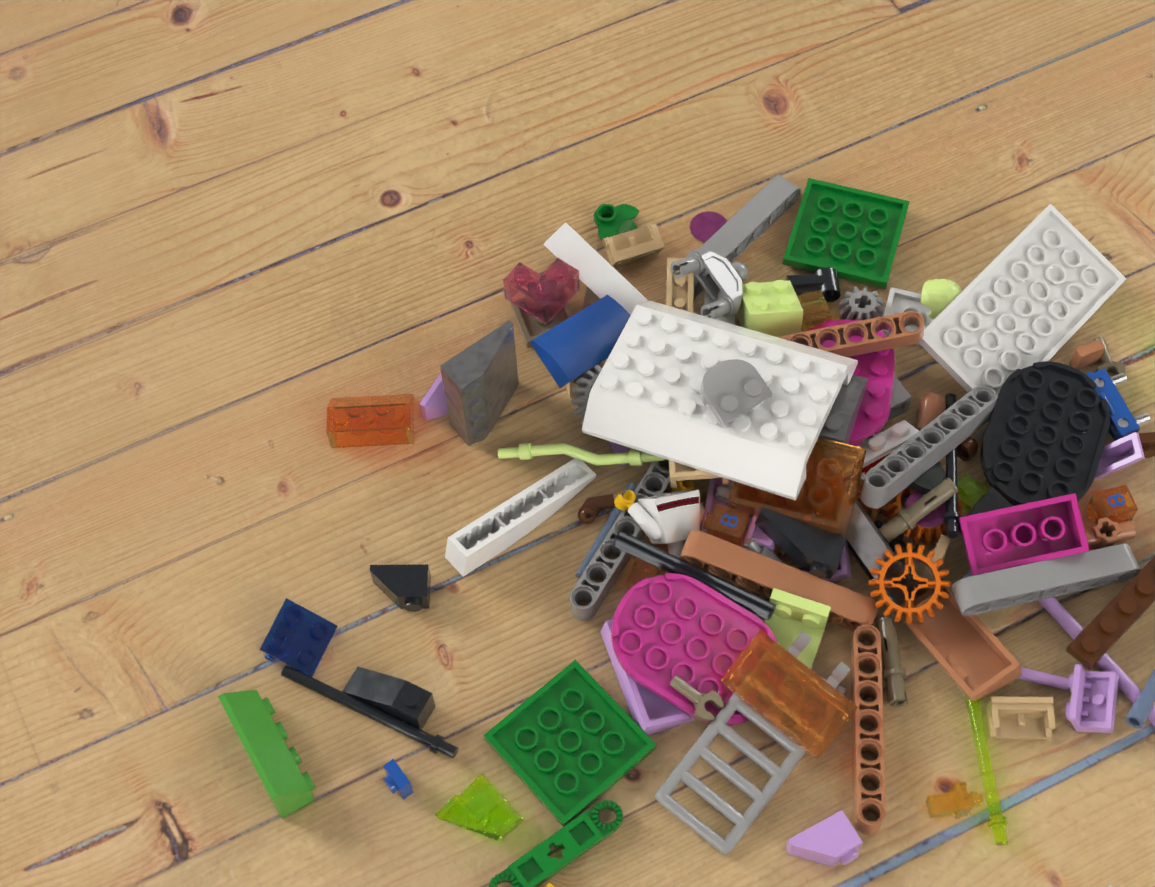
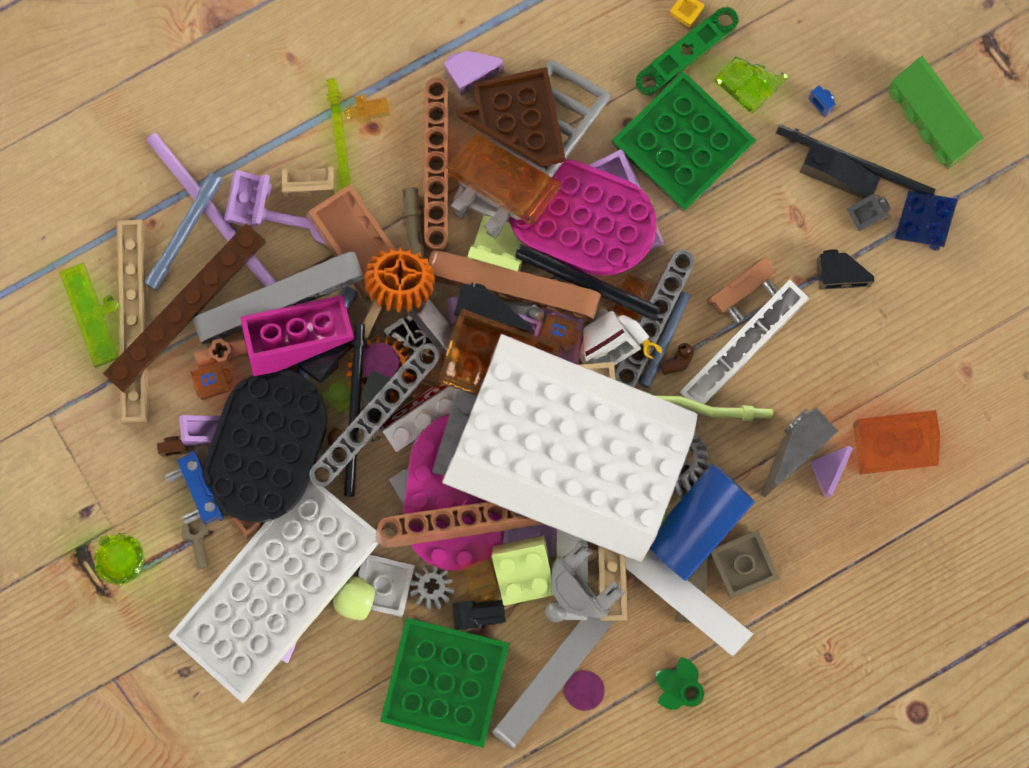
camera: 175 degrees right, 20 degrees up
(360, 649) = (869, 211): none -> dark grey bracket
(517, 576) = (742, 286): none -> nougat piece
(542, 294) = (749, 574): clear pink brick -> none
(633, 244) = (661, 652): tan hinge -> none
(699, 699) = (578, 171): dark tan bar -> none
(733, 389) = (562, 420): light grey slope -> none
(768, 773) = (518, 114): none -> reddish brown wing
(907, 518) = (396, 346): dark tan pin -> none
(929, 408) = (371, 472): nougat cone -> none
(1087, 355) = (216, 543): nougat tile -> none

